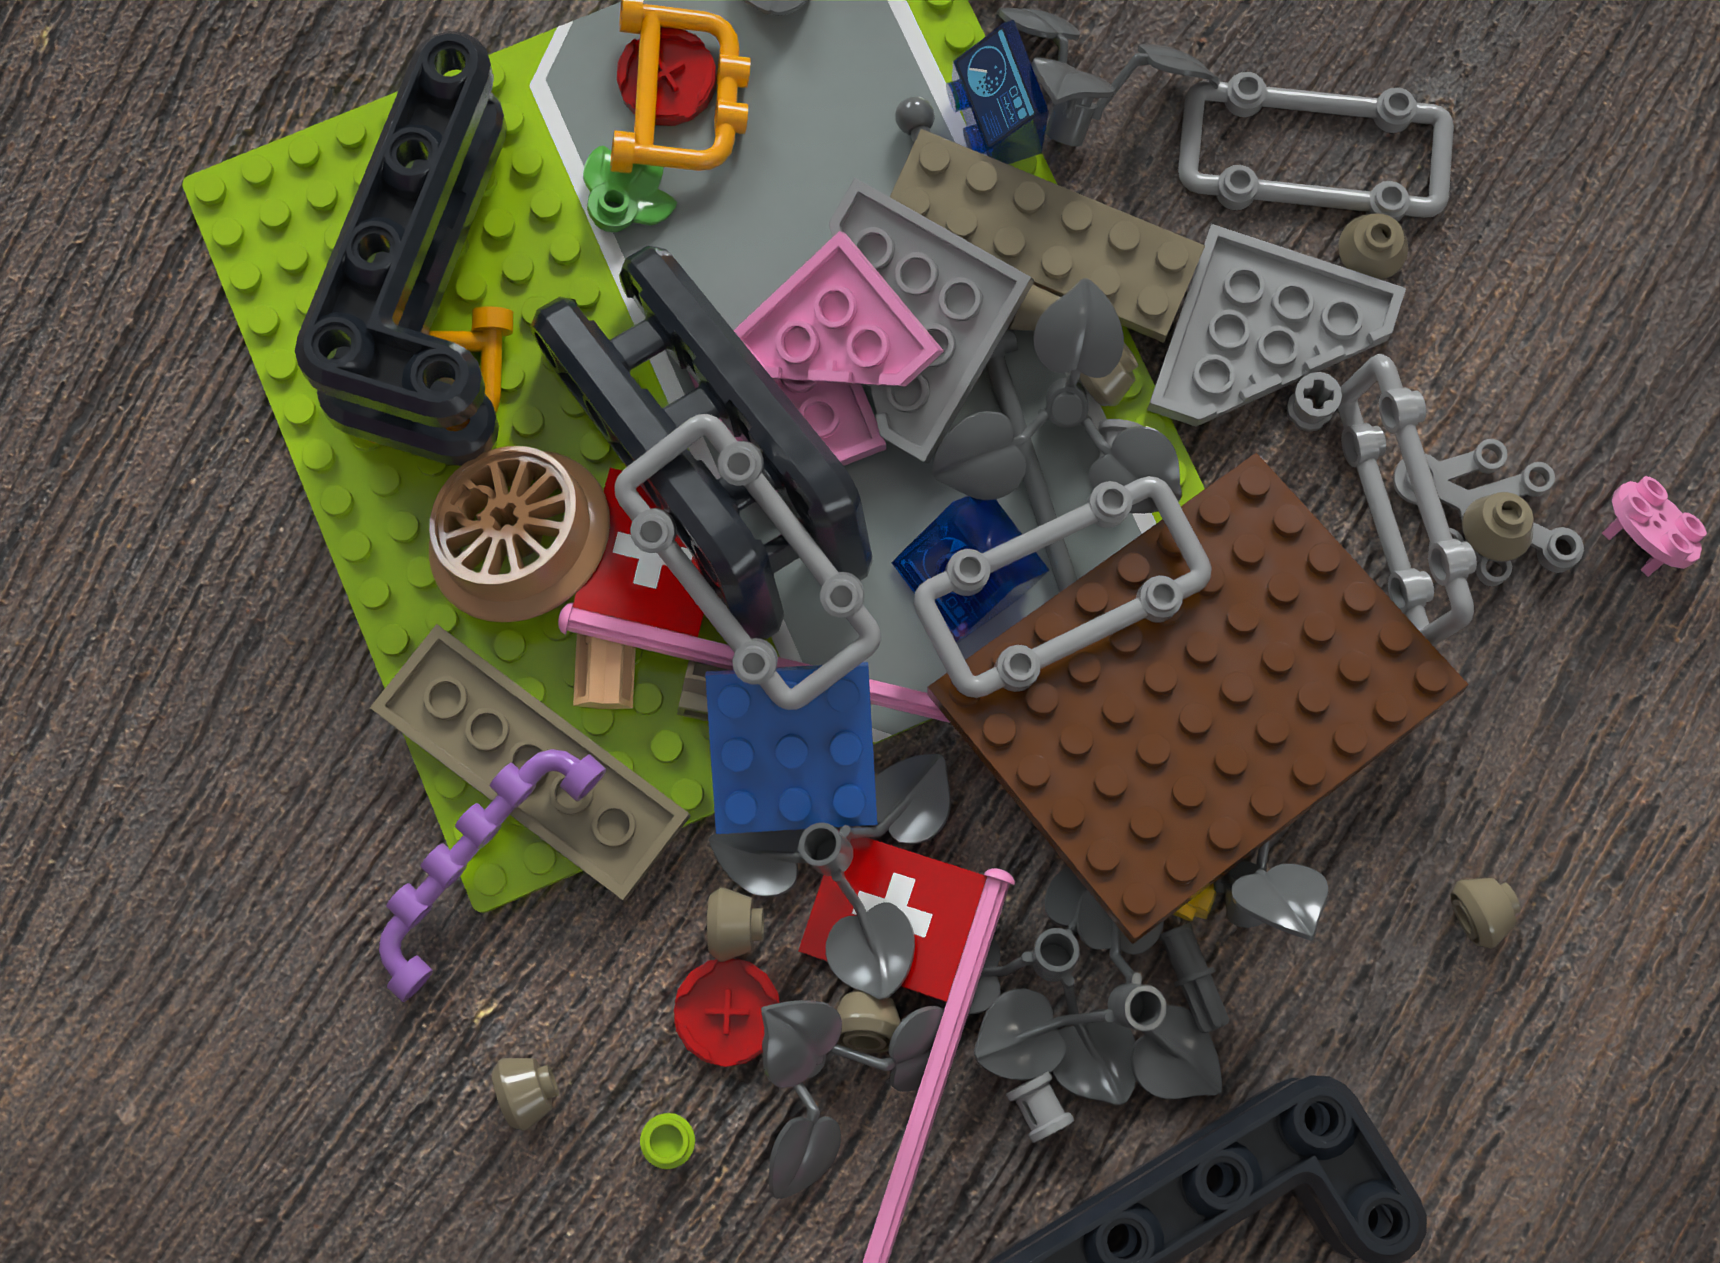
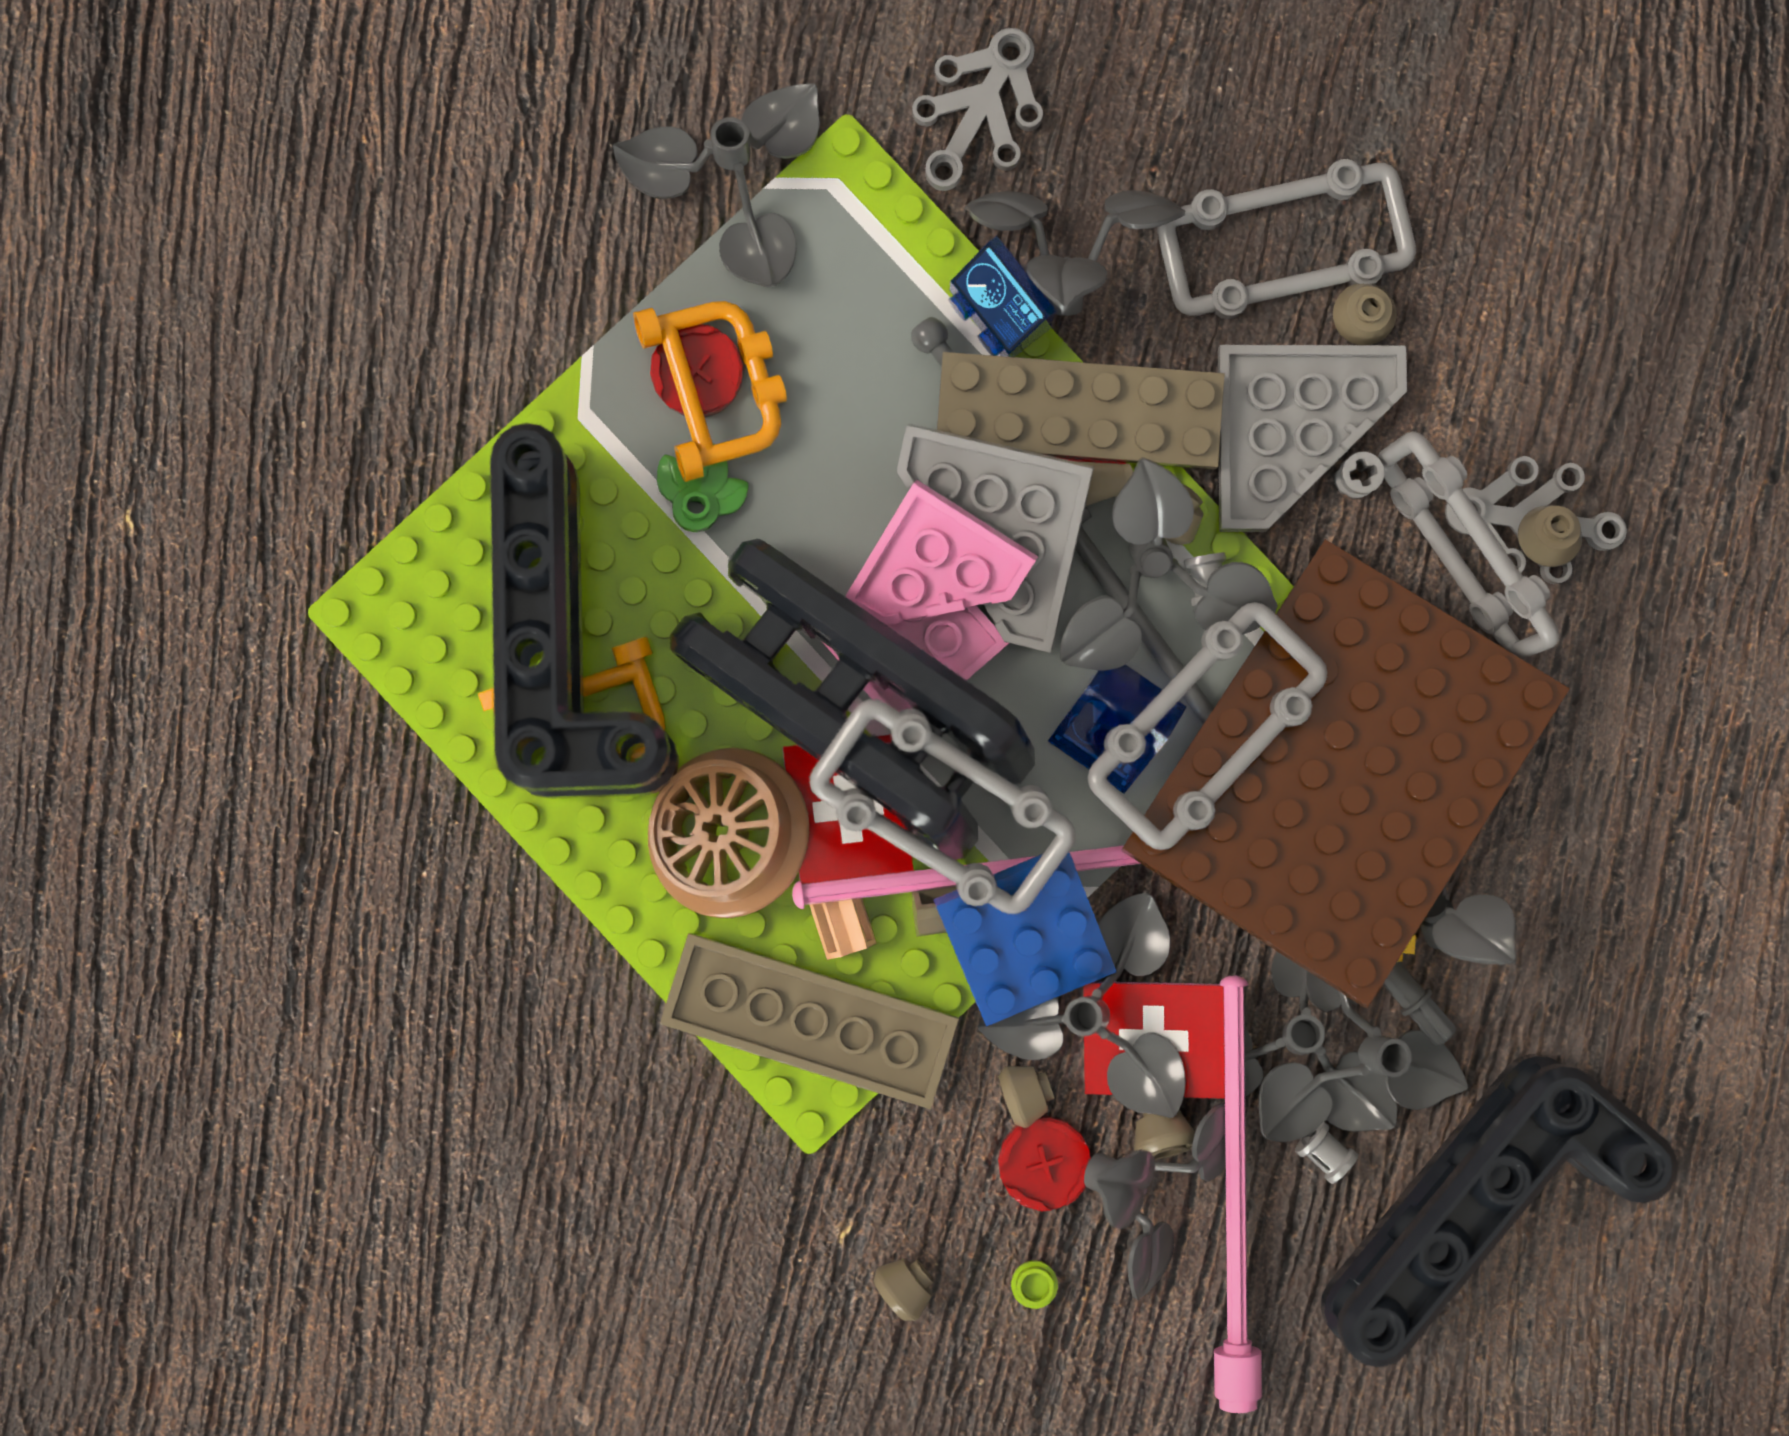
camera: 20 degrees left, 10 degrees up
(447, 865) = (789, 1095): medium lavender bar -> none
(1485, 909) = (1637, 865): dark tan cone -> none
(1656, 525) = (1682, 486): bright pink plate -> none

